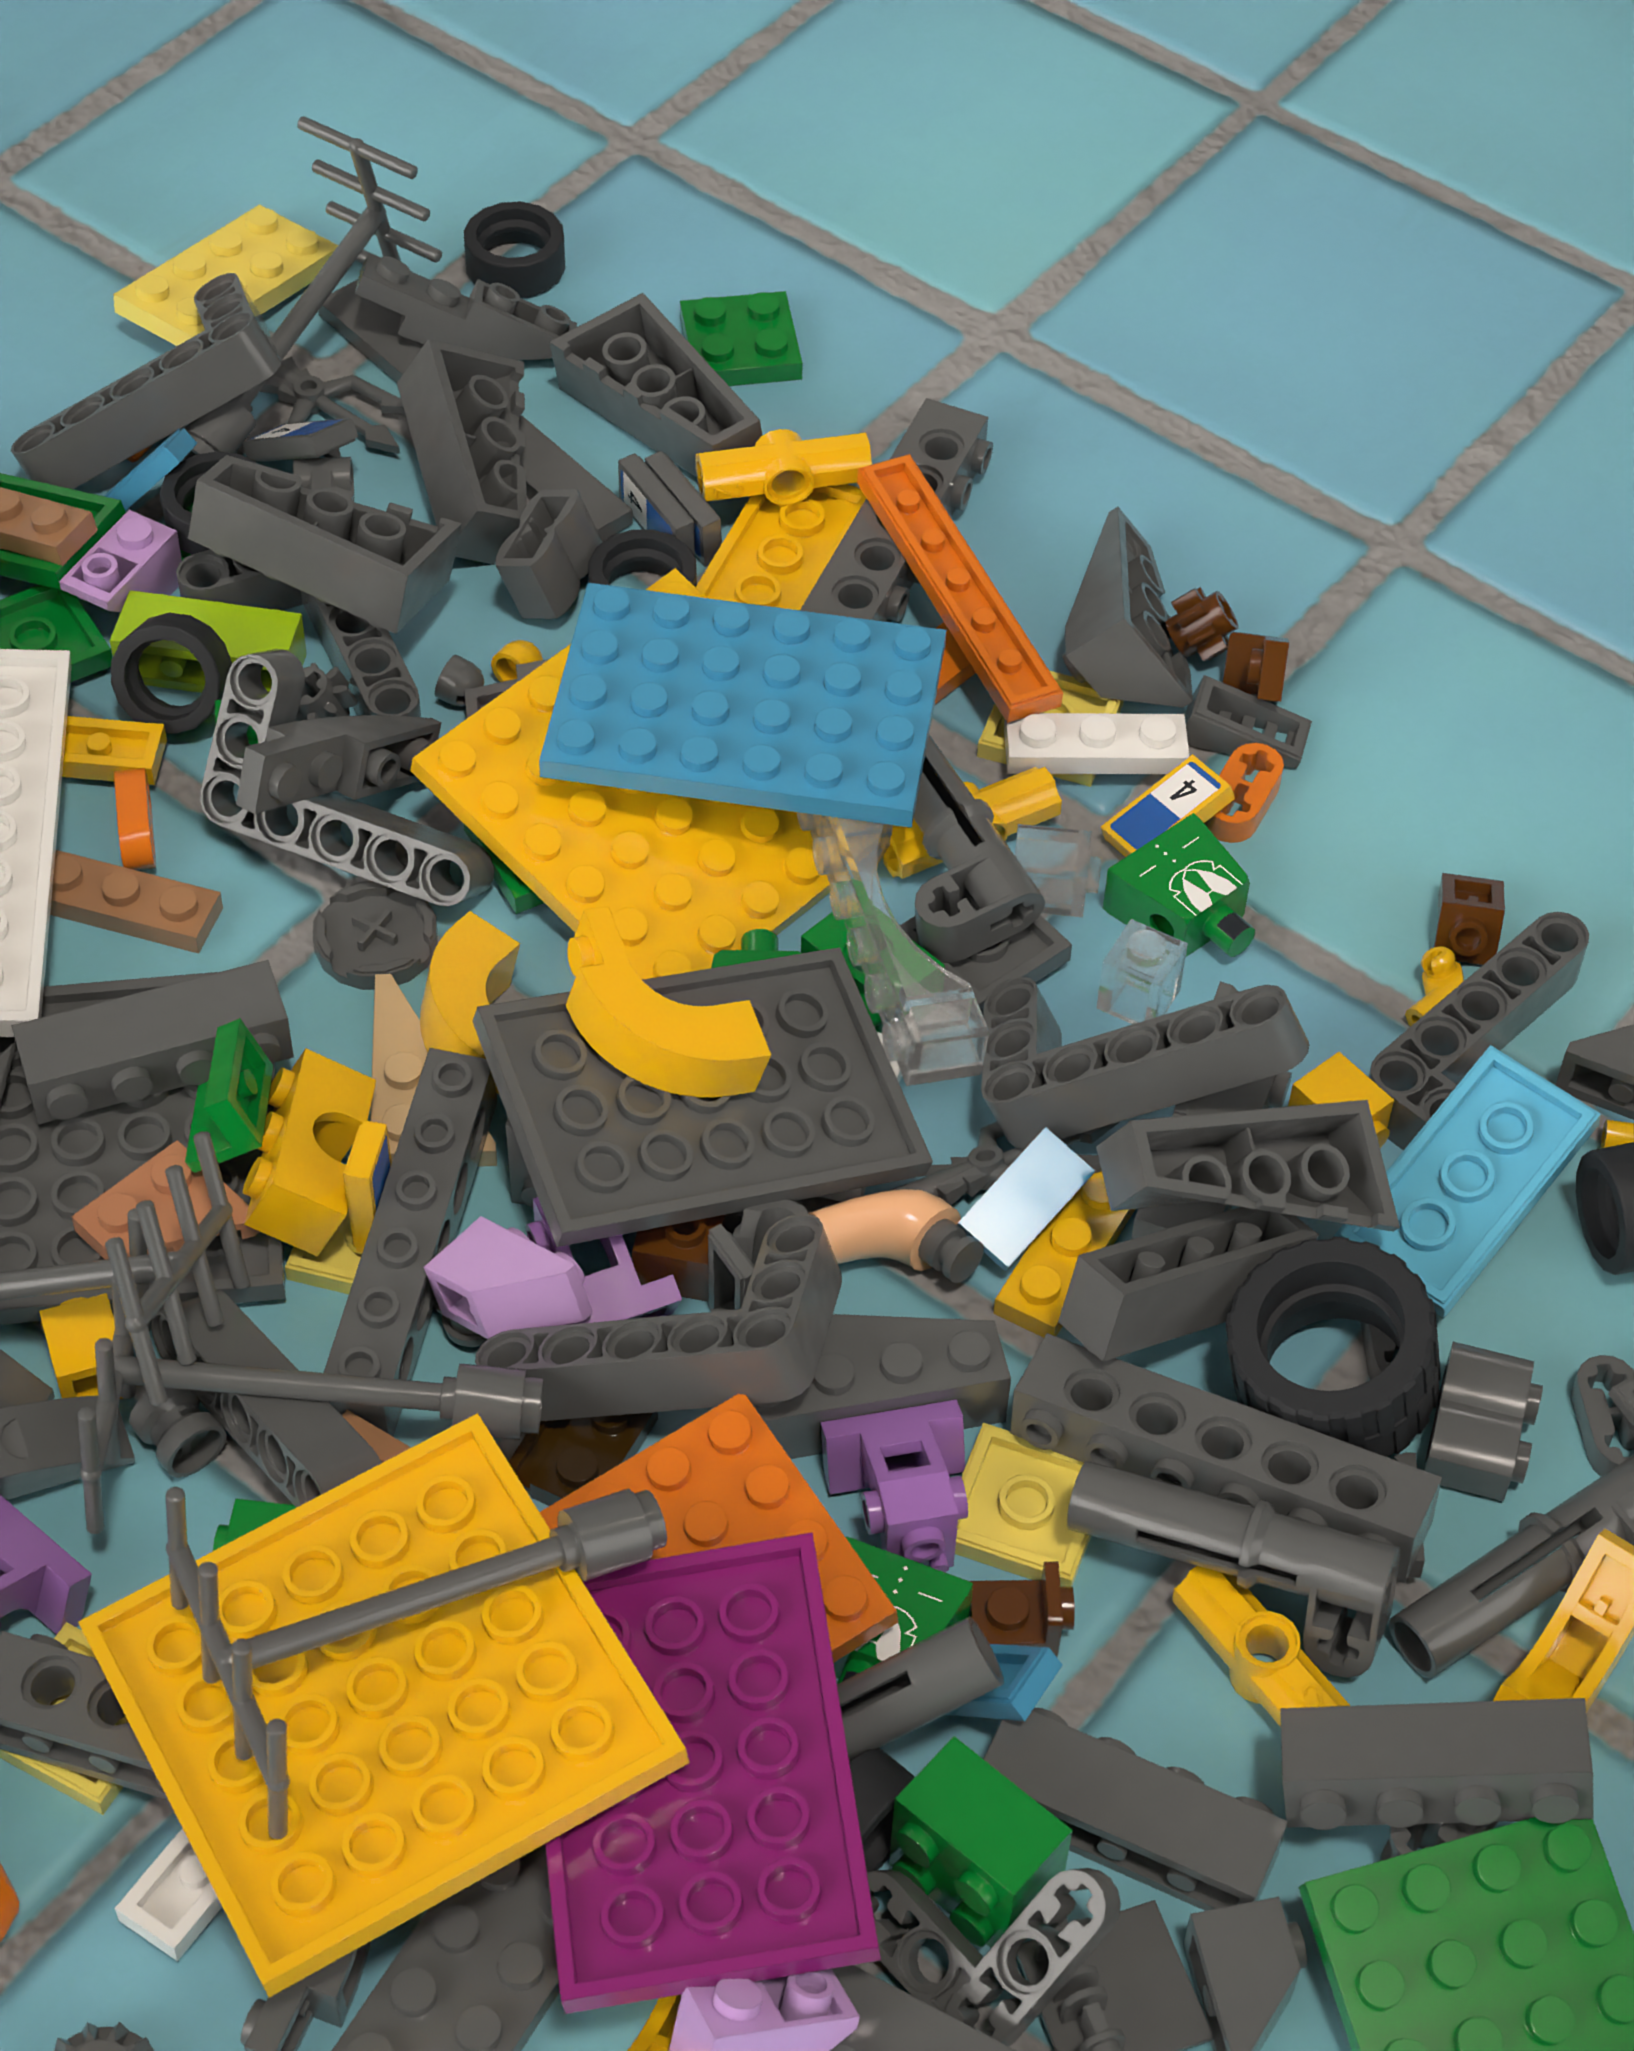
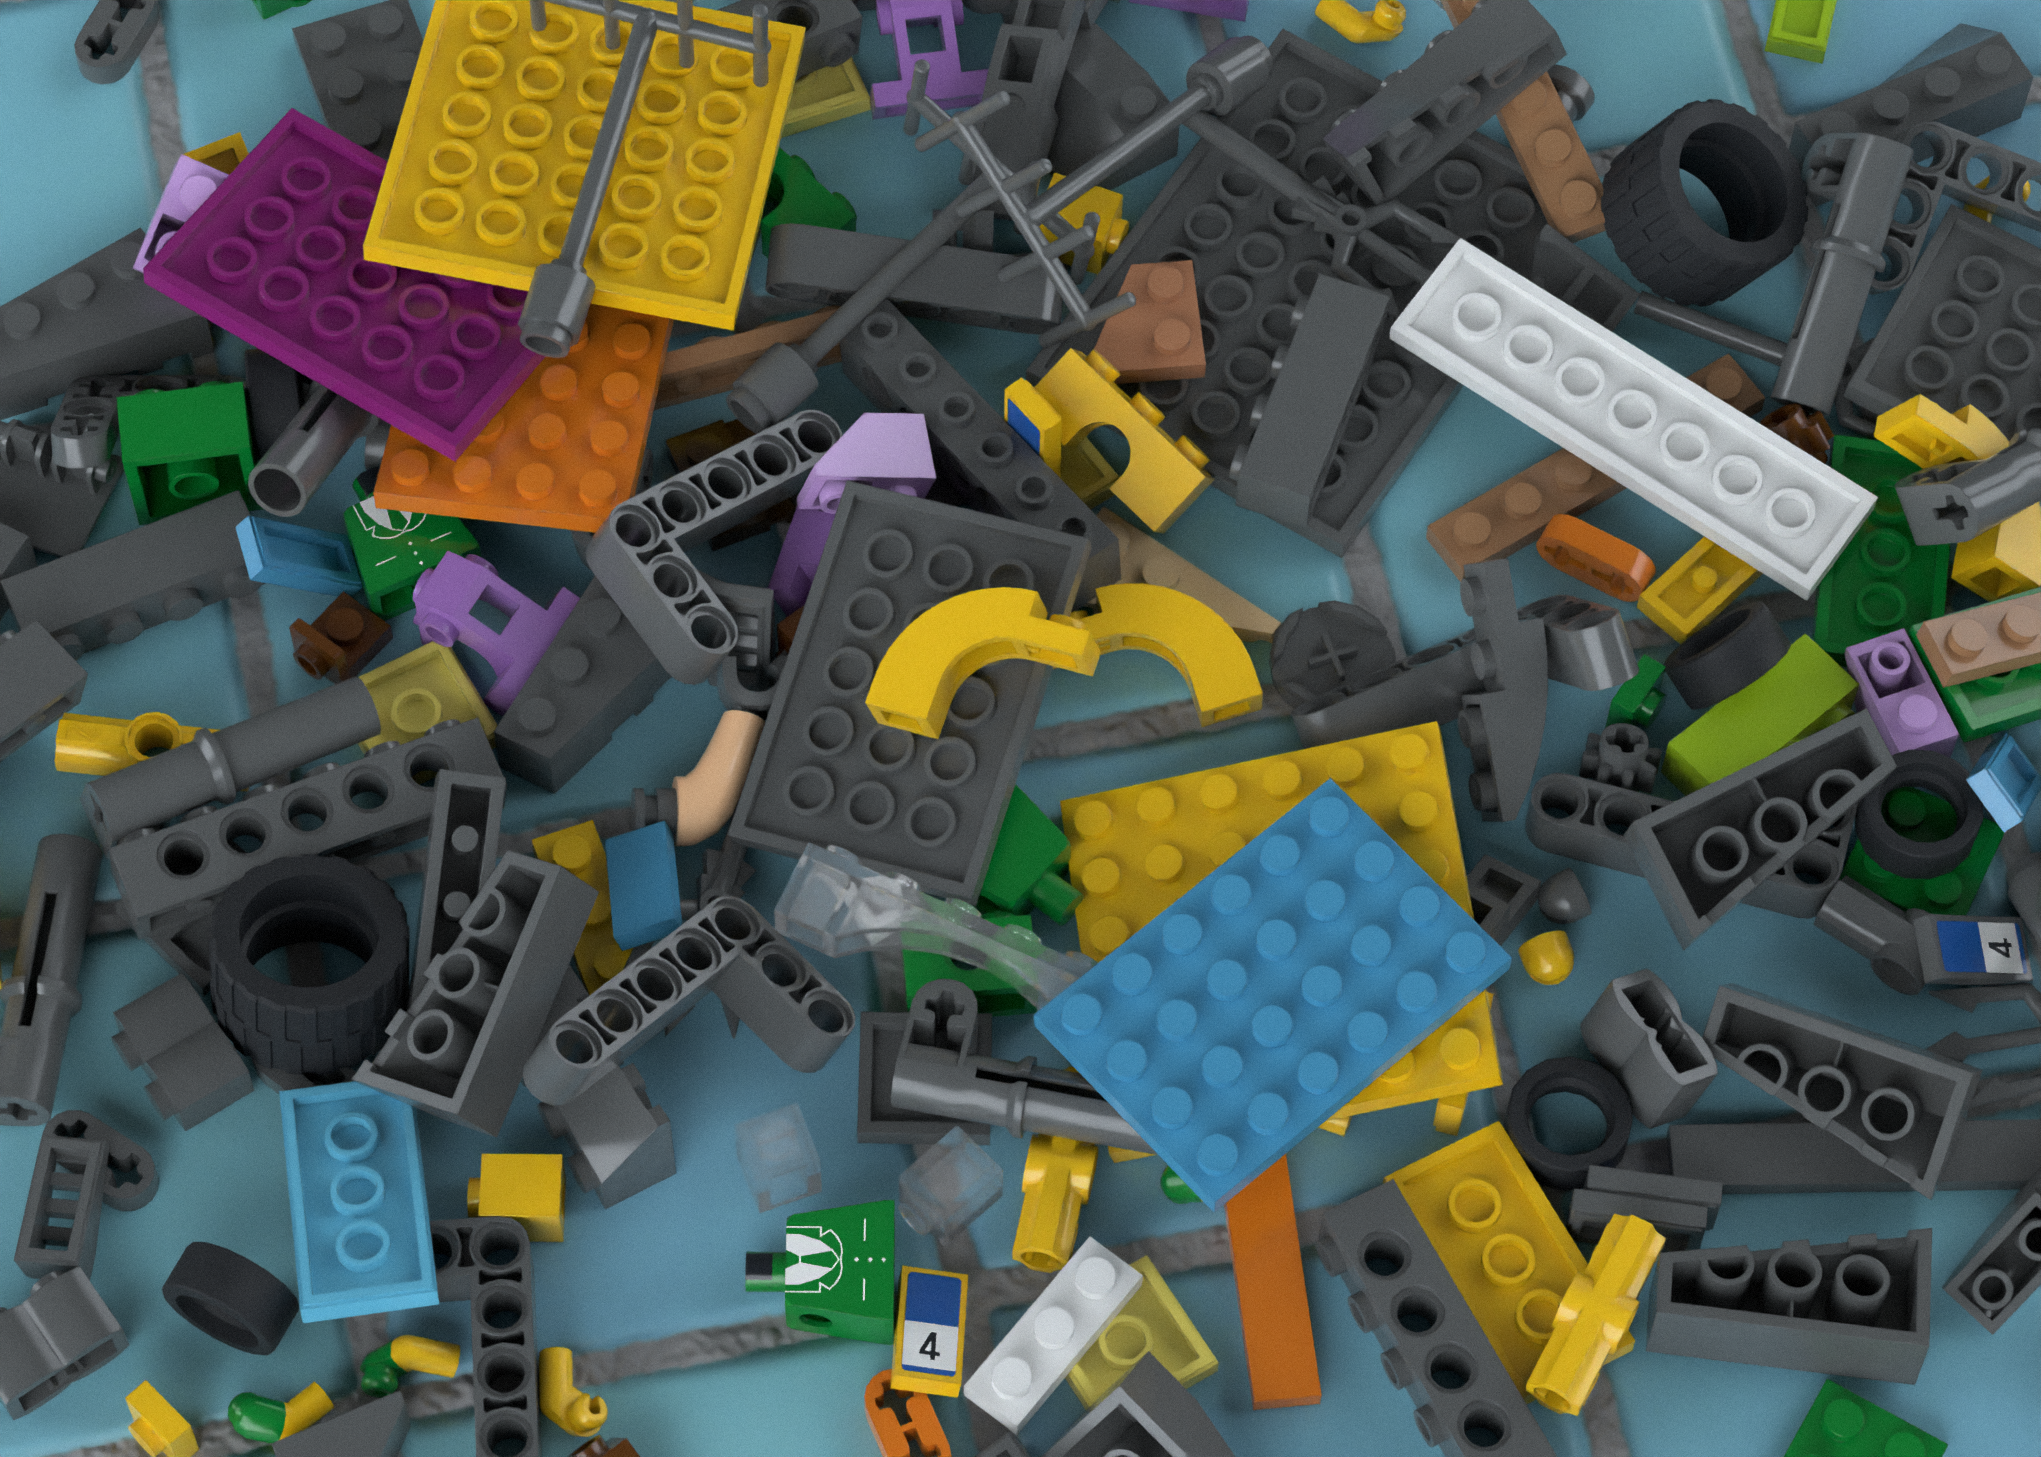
camera: 130 degrees right, 10 degrees up
(234, 1097) = (1194, 397): green panel -> none
(959, 588) = (1317, 1338): orange tile -> none

